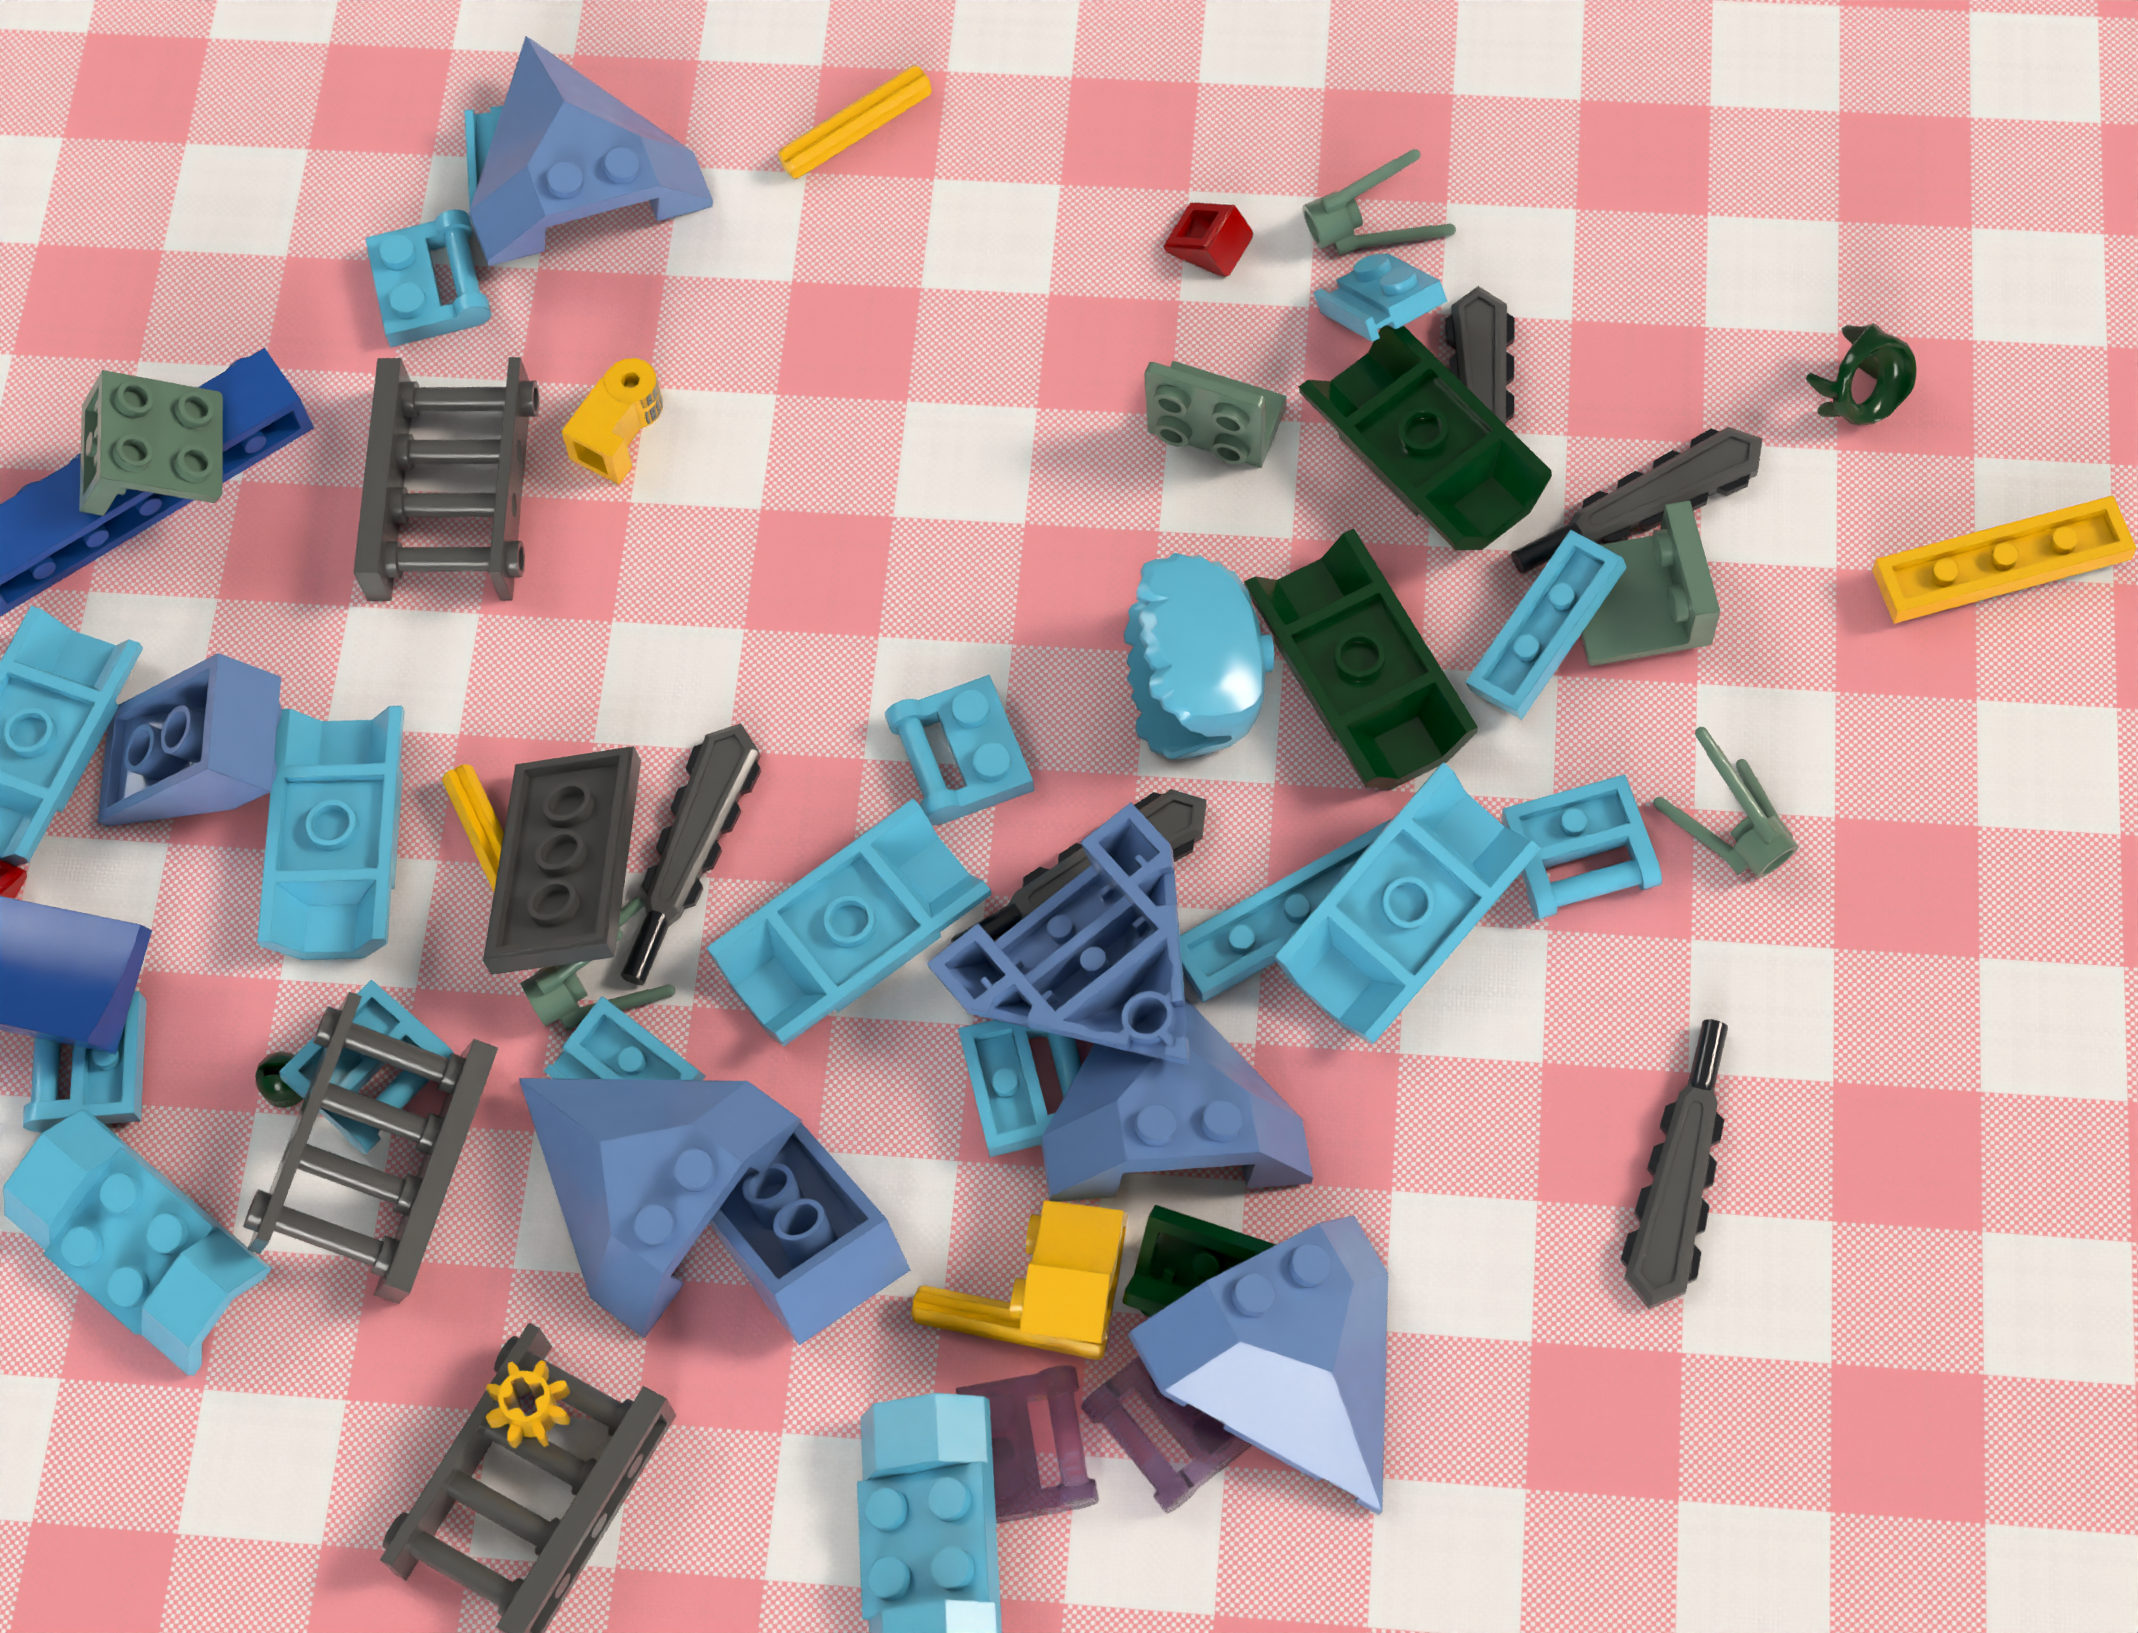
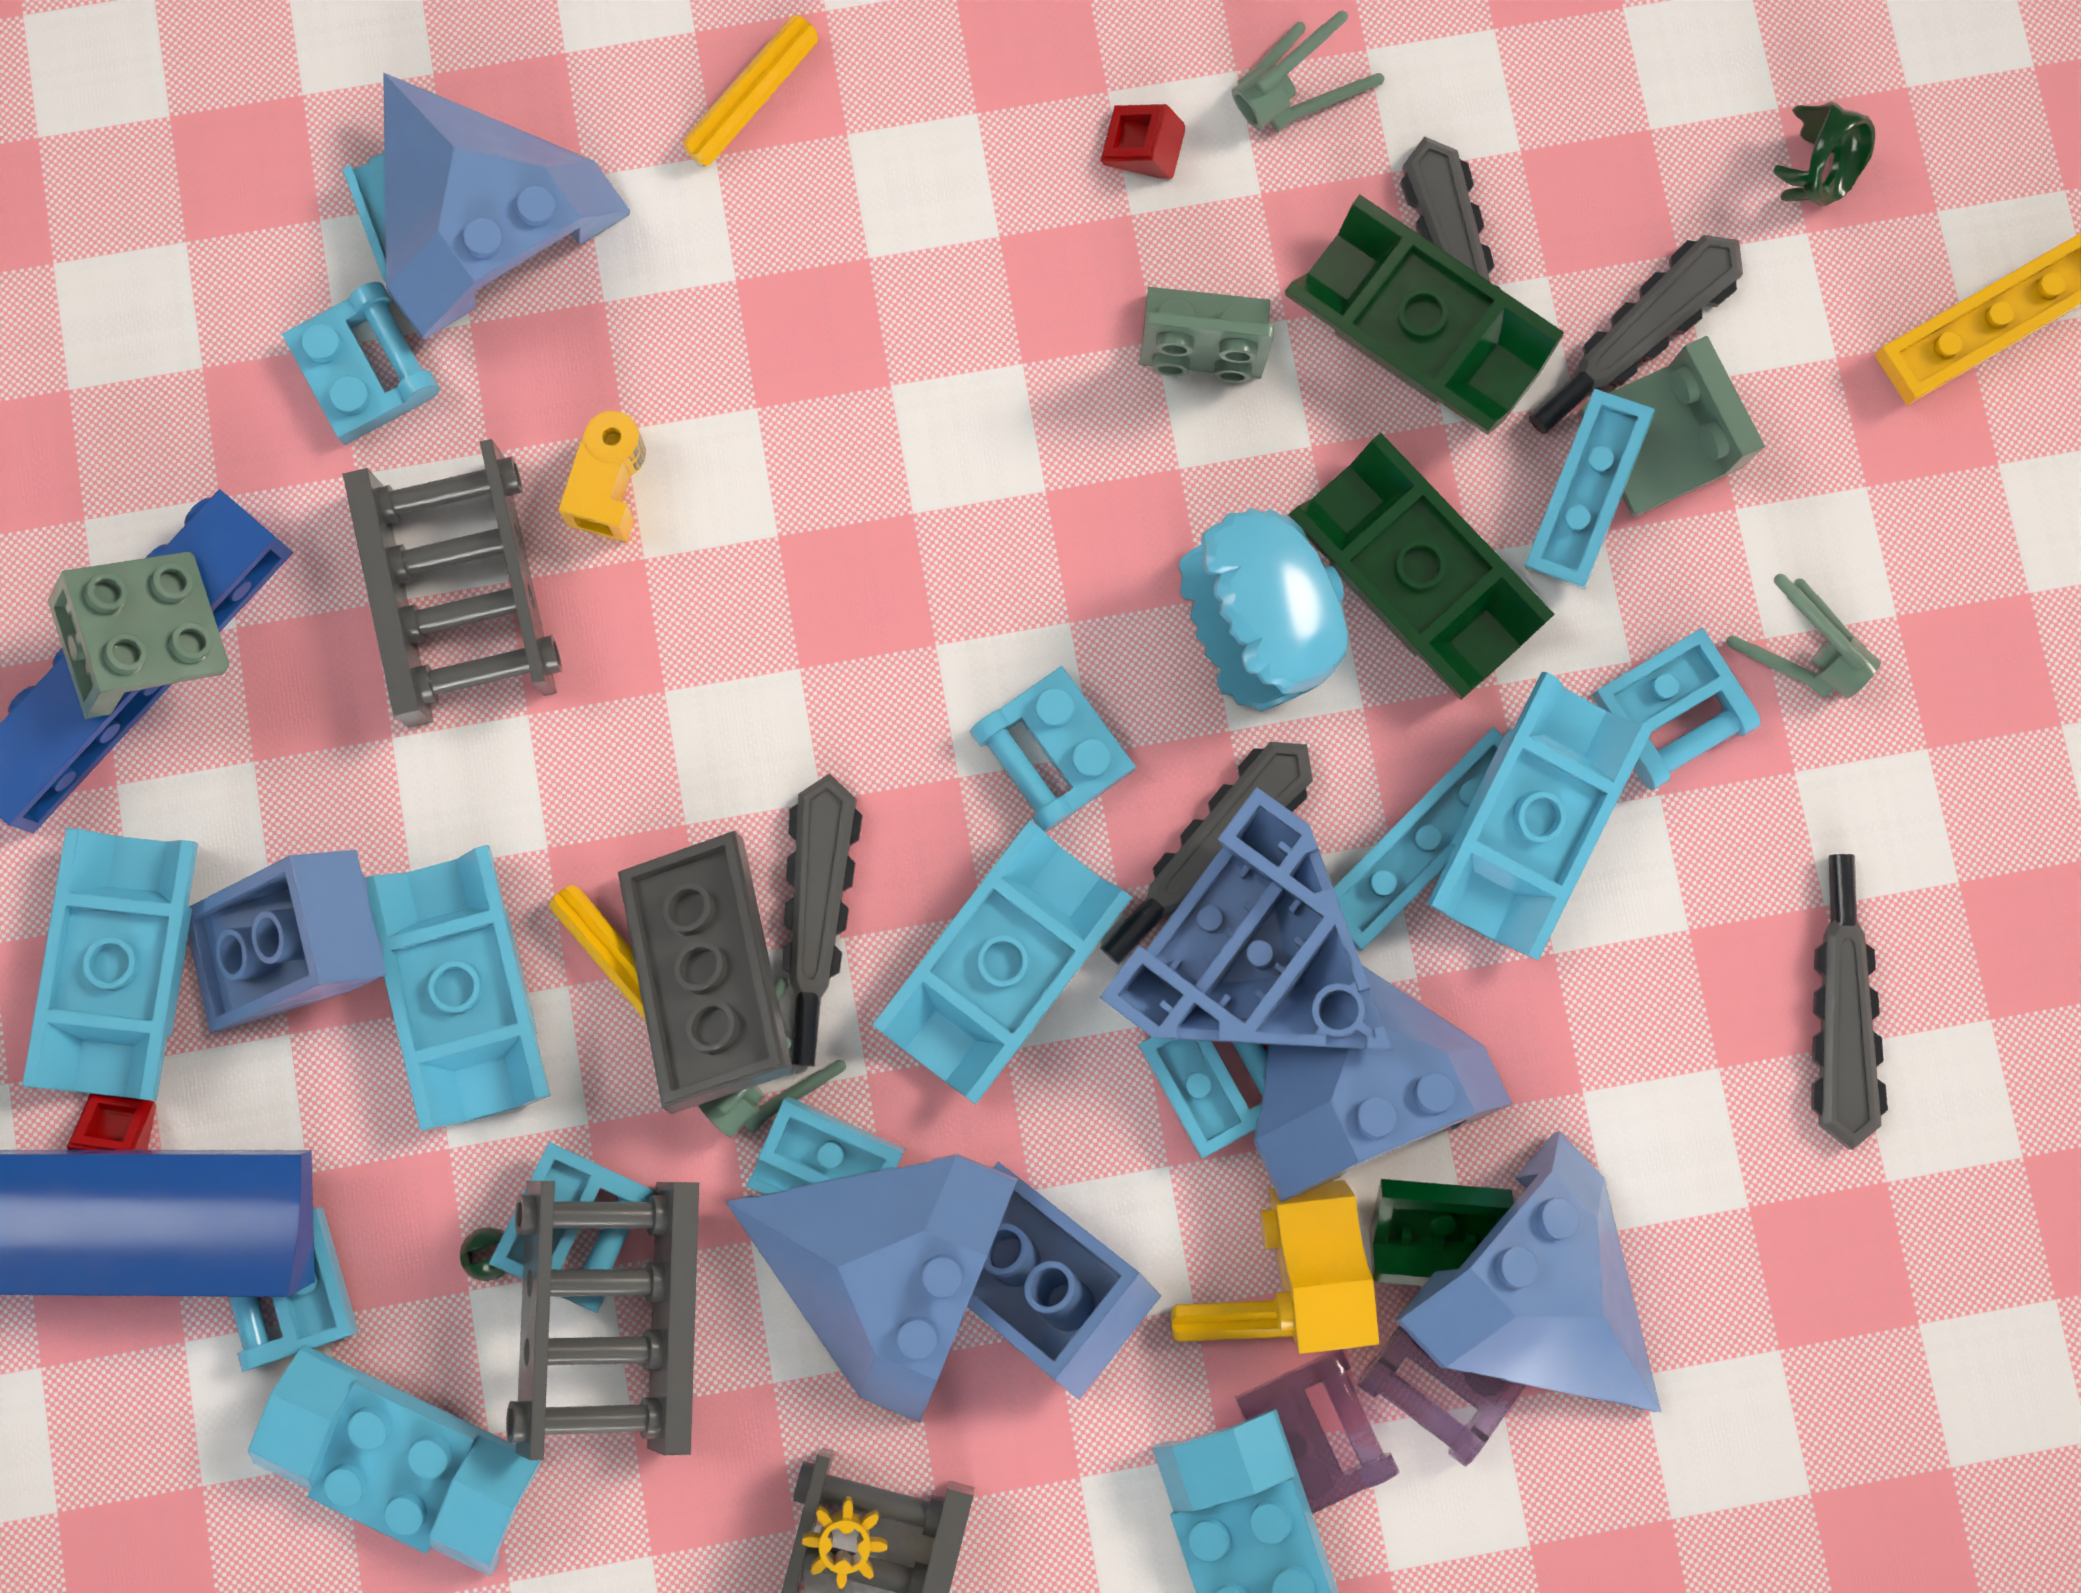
camera: 25 degrees left, 15 degrees up
(1380, 294) = (1340, 175): medium azure plate -> none

